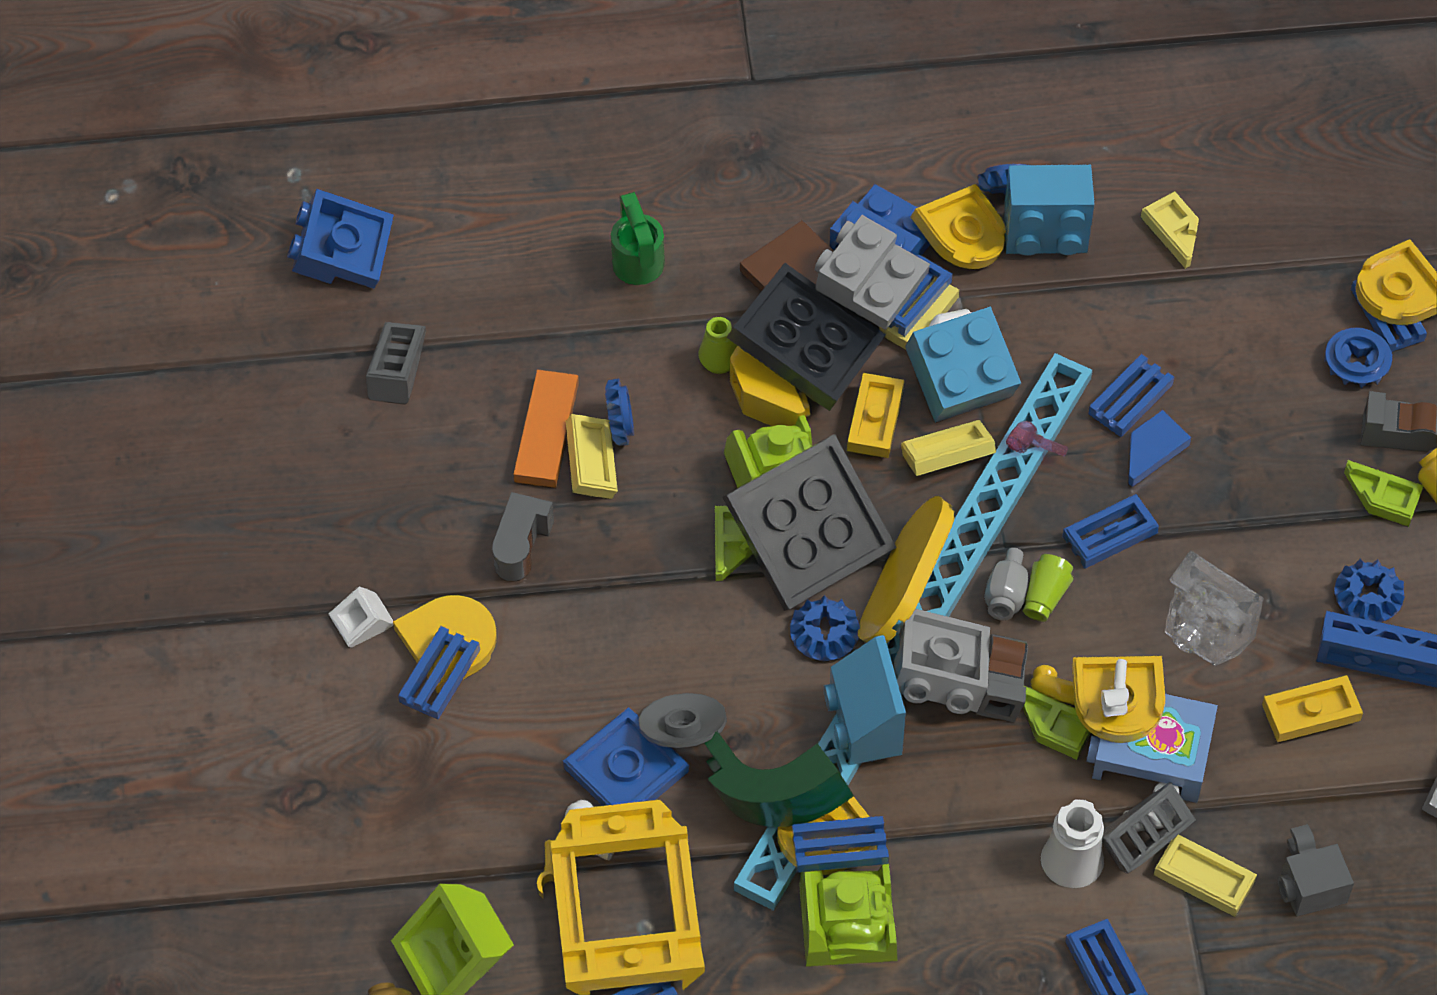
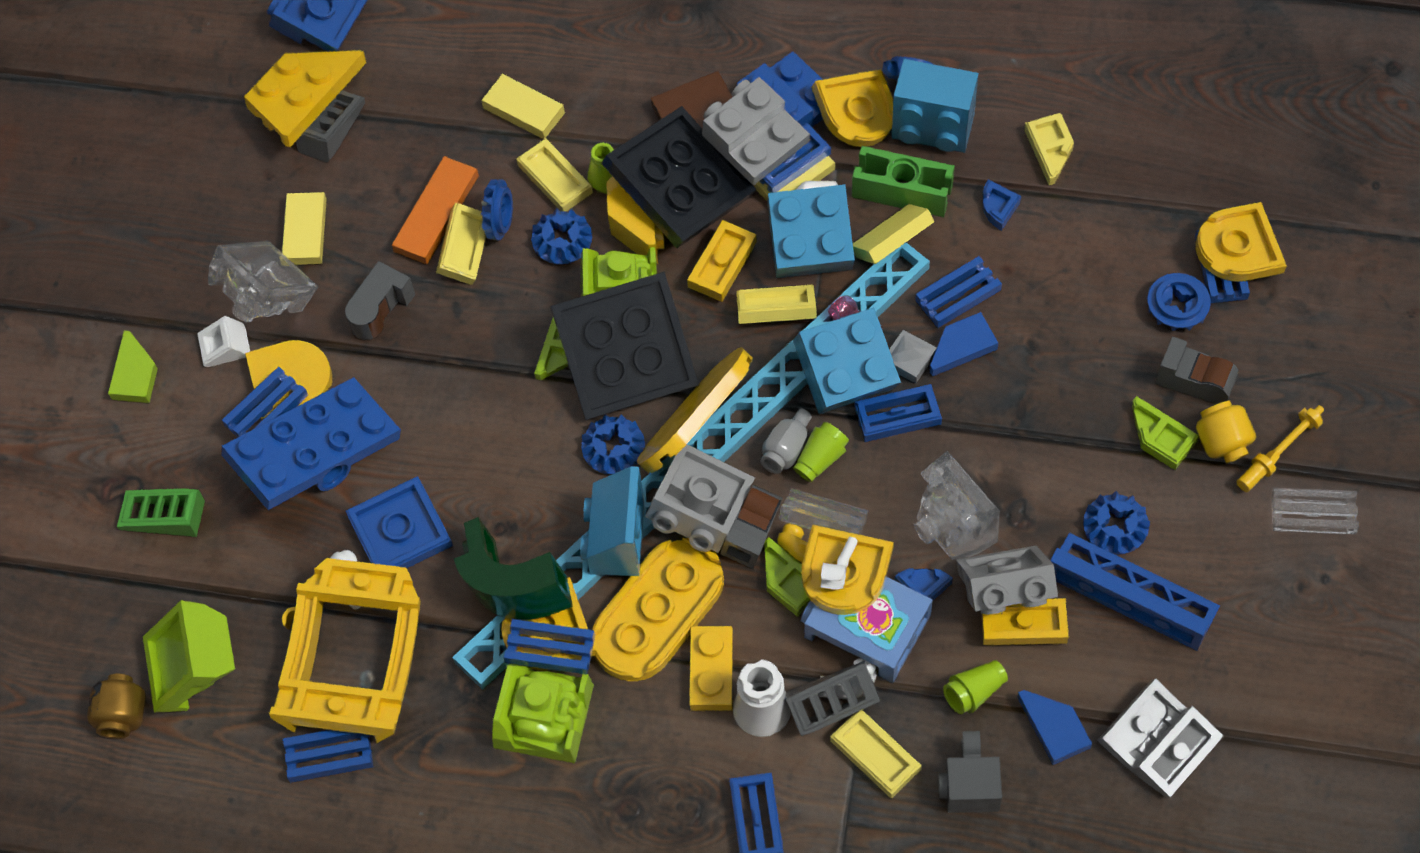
camera: 20 degrees right, 5 degrees up
(273, 669) = (133, 372): none -> lime tile
(354, 331) = (301, 89): none -> yellow wing
(374, 820) = (186, 525): none -> bright green slope
(387, 541) = (259, 280): none -> clear brick
(408, 478) = (304, 227): none -> light yellow tile
(505, 698) = (311, 444): none -> blue plate
(602, 300) = (523, 106): none -> light yellow tile
(636, 244) = (564, 63): green piece -> none
(662, 365) = (554, 175): none -> light yellow tile
(682, 720) = (456, 499): dark grey dish -> none
(697, 441) = (560, 250): none -> blue gear
(932, 784) = (656, 610): none -> yellow tile
(1008, 831) = (711, 668): none -> yellow plate
(1046, 487) = (846, 360): none -> dark azure brick
(1047, 348) = (892, 233): none -> light yellow tile
(1061, 647) = (809, 510): none -> clear tile
(1063, 293) = (880, 170): none -> bright green piece
(1103, 471) = (911, 355): none -> light grey tile
(1141, 297) = (999, 204): none -> blue tile
(1203, 690) = (925, 581): none -> blue tile
(1283, 784) = (974, 686): none -> lime cone
(1285, 668) = (1008, 579): none -> light grey plate
(1375, 804) = (1055, 726): none -> blue tile

